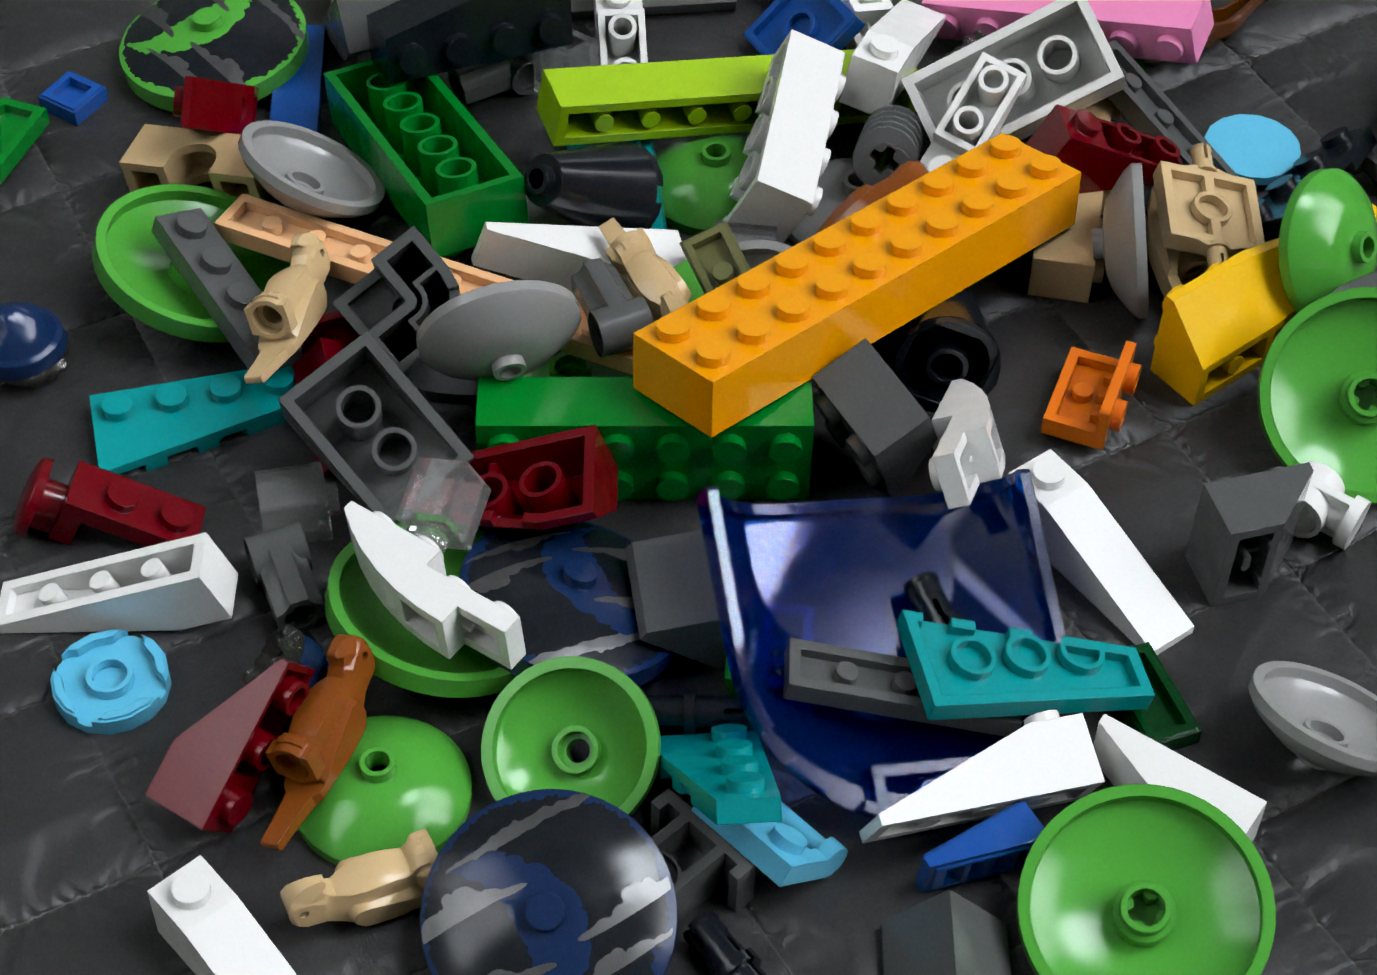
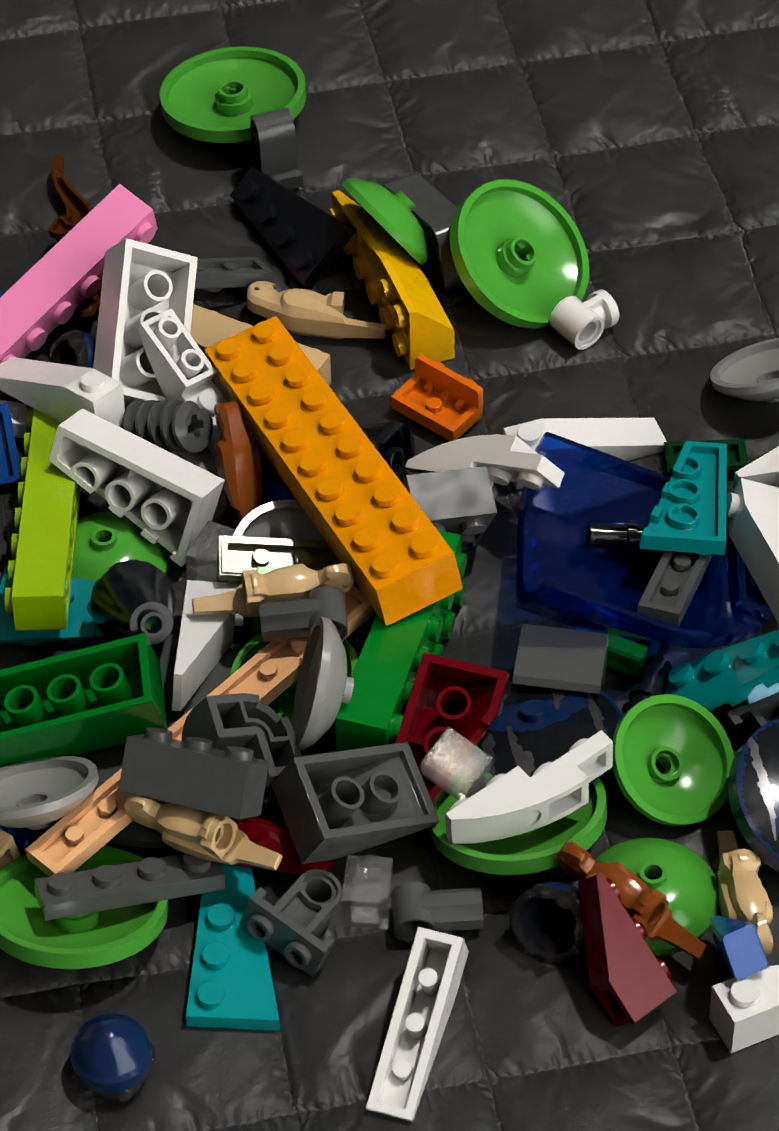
camera: 70 degrees left, 0 degrees up
(104, 503) = (308, 1050): dark red piece -> none
(111, 682) = (494, 1047): medium azure tile -> none
(225, 444) = (297, 919): none -> dark grey pin
(257, 863) = (738, 946): none -> slope
(327, 264) = (194, 774): none -> dark grey brick
(1100, 147) = (233, 305): dark red slope -> none
(1124, 241) = (329, 317): light grey dish -> none
(1206, 208) = (311, 274): tan plate -> none
(1245, 531) = (610, 354): dark grey slope -> none
(1255, 146) = (223, 237): medium azure tile -> none

